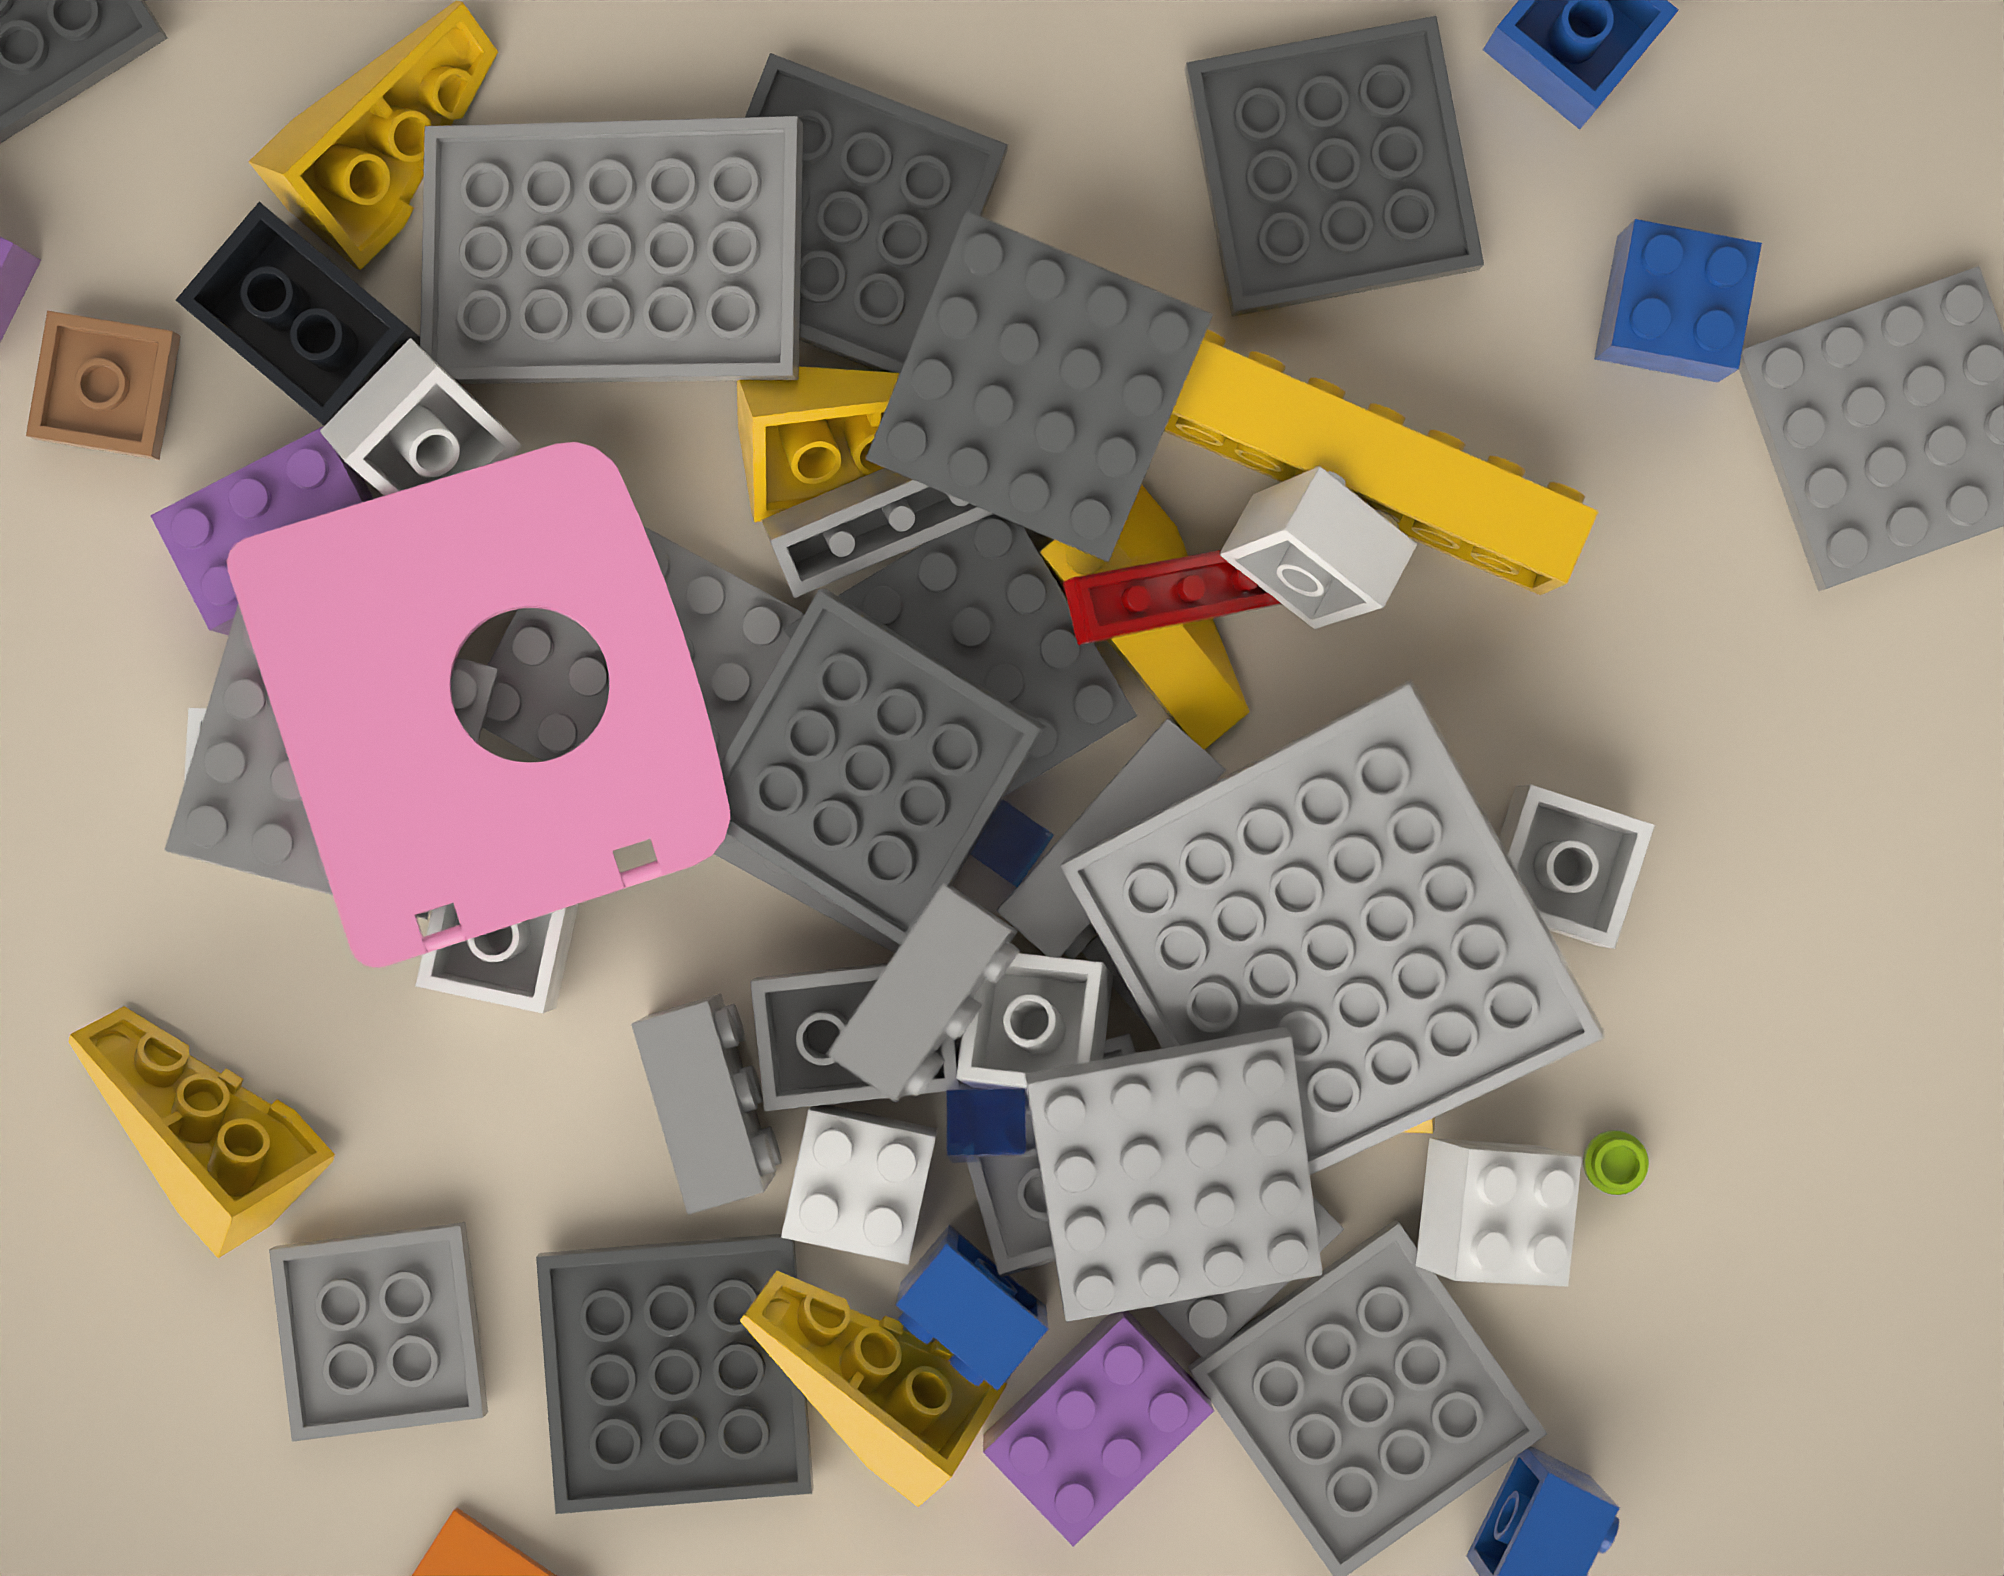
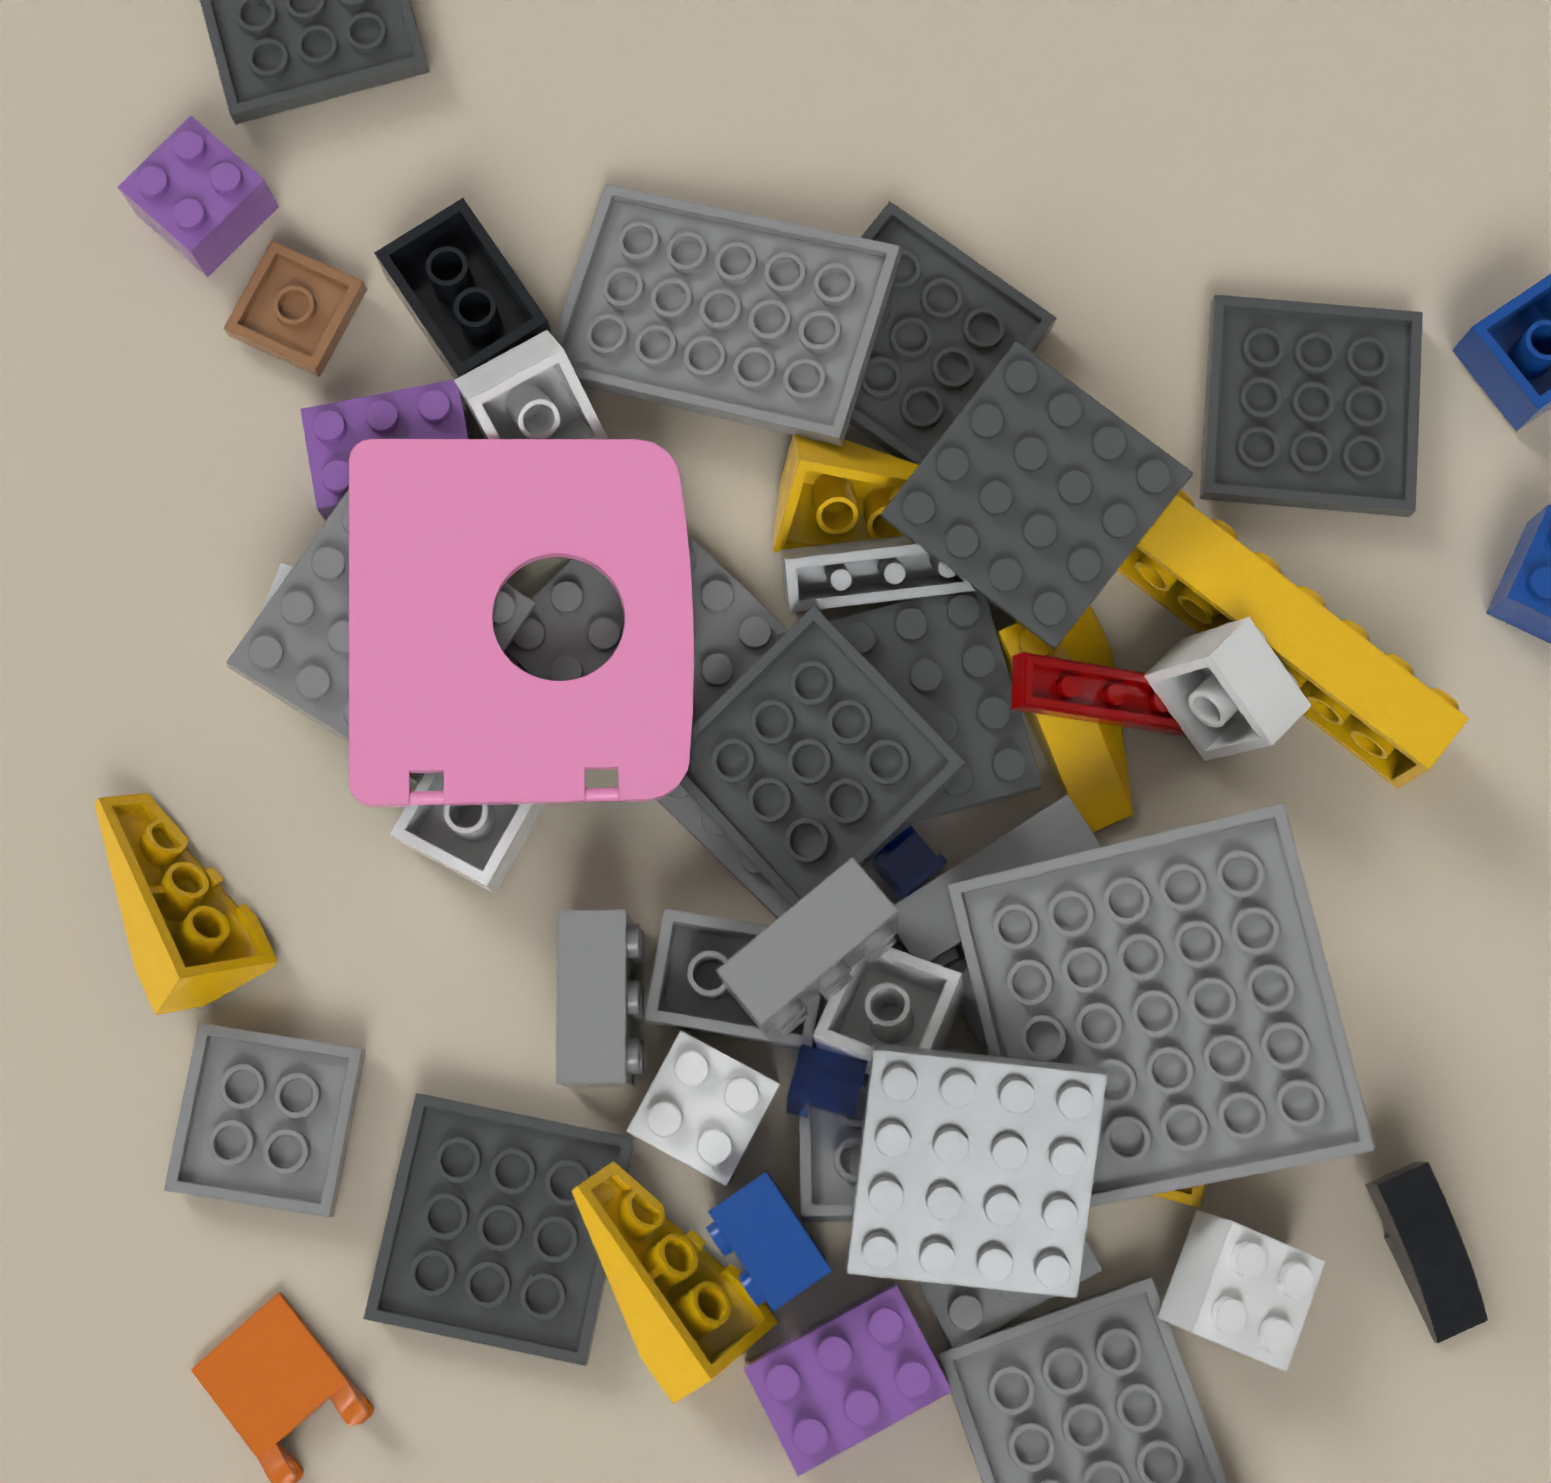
camera: 20 degrees right, 10 degrees down
(360, 149) = (550, 189): yellow wedge -> none
(1575, 861) = (1383, 1008): white brick -> none
(1615, 1162) = (1350, 1281): lime plate -> none
(1691, 1106) = (1428, 1250): none -> black slope

